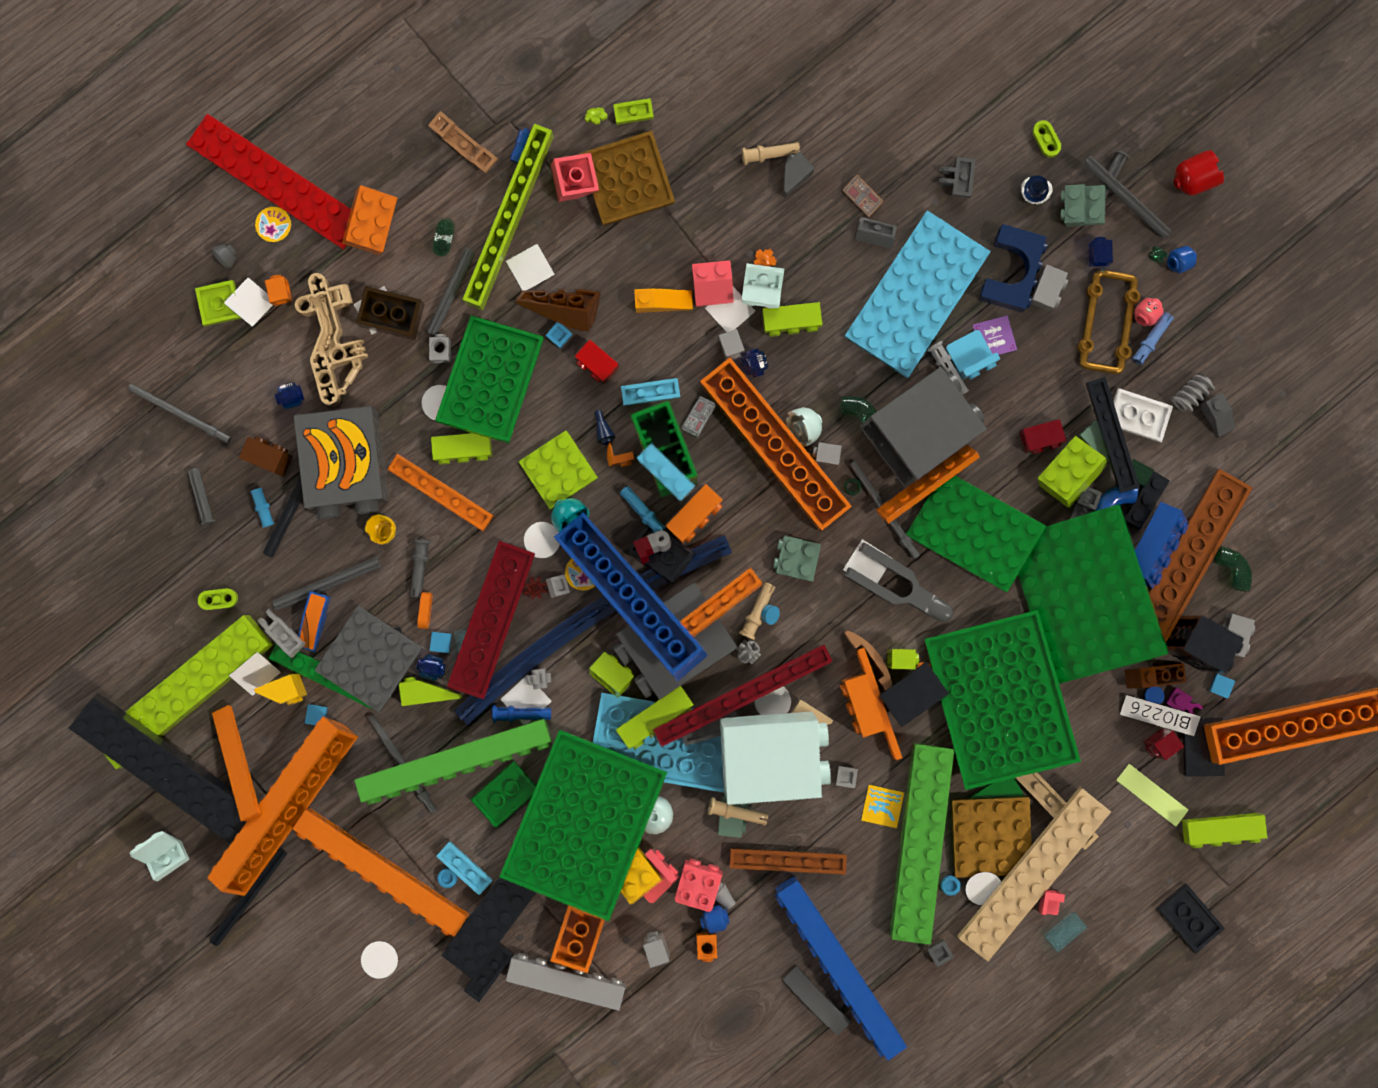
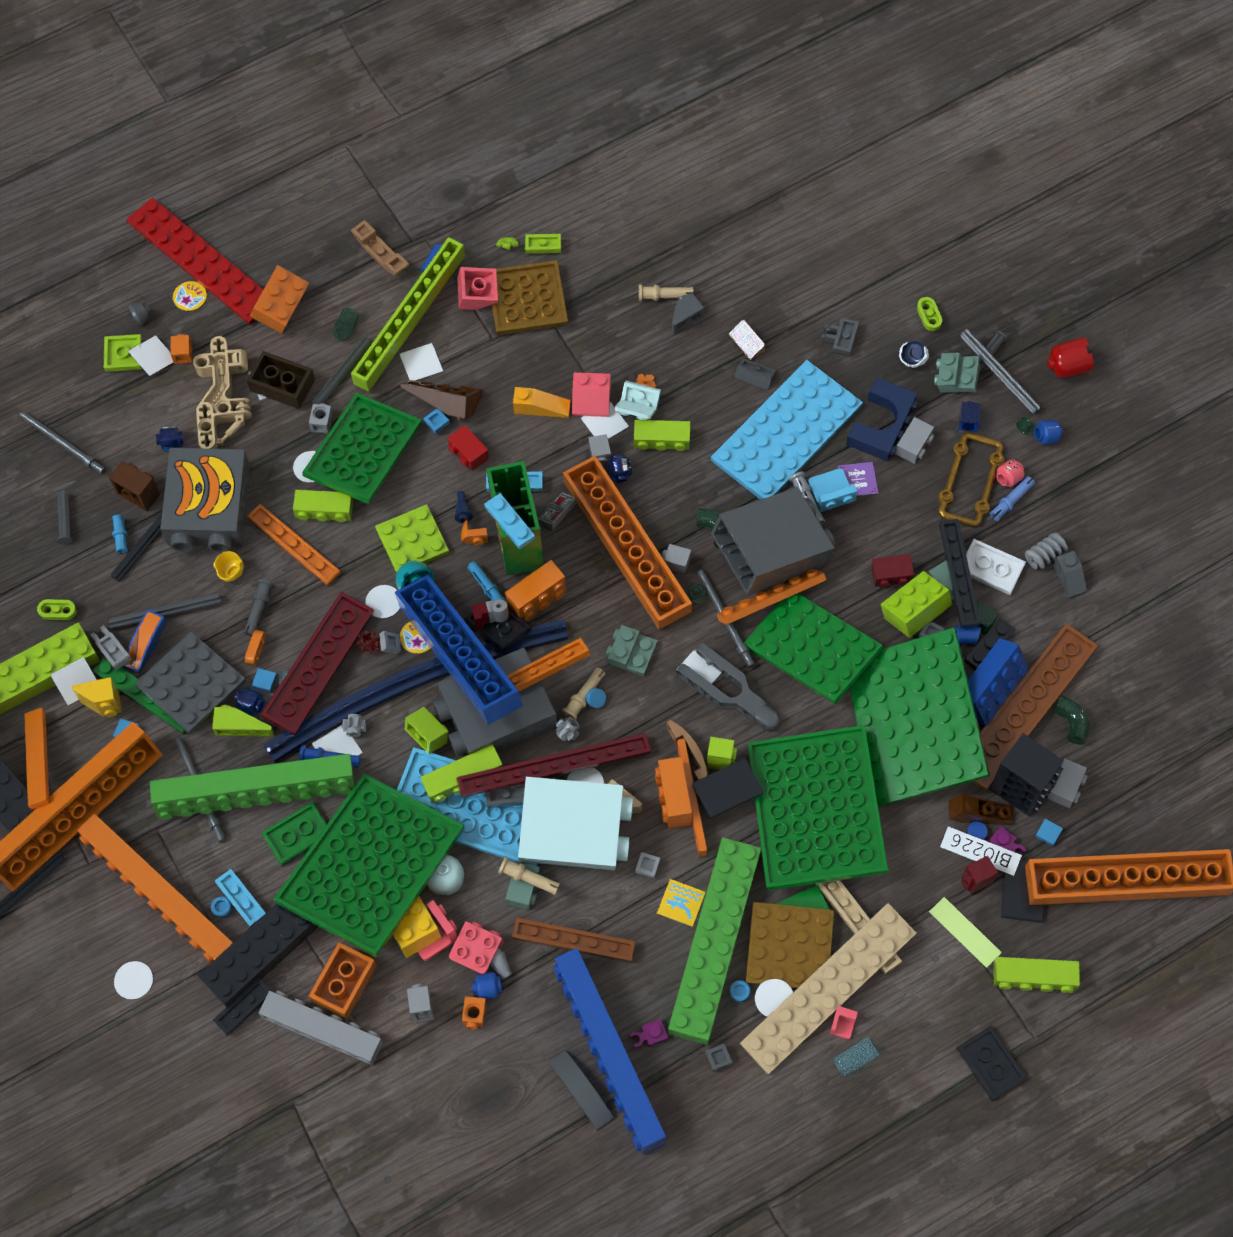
camera: 15 degrees right, 20 degrees down
(804, 425) = (659, 527): light aqua cylinder -> none
(875, 938) = (652, 1034): none -> magenta plate

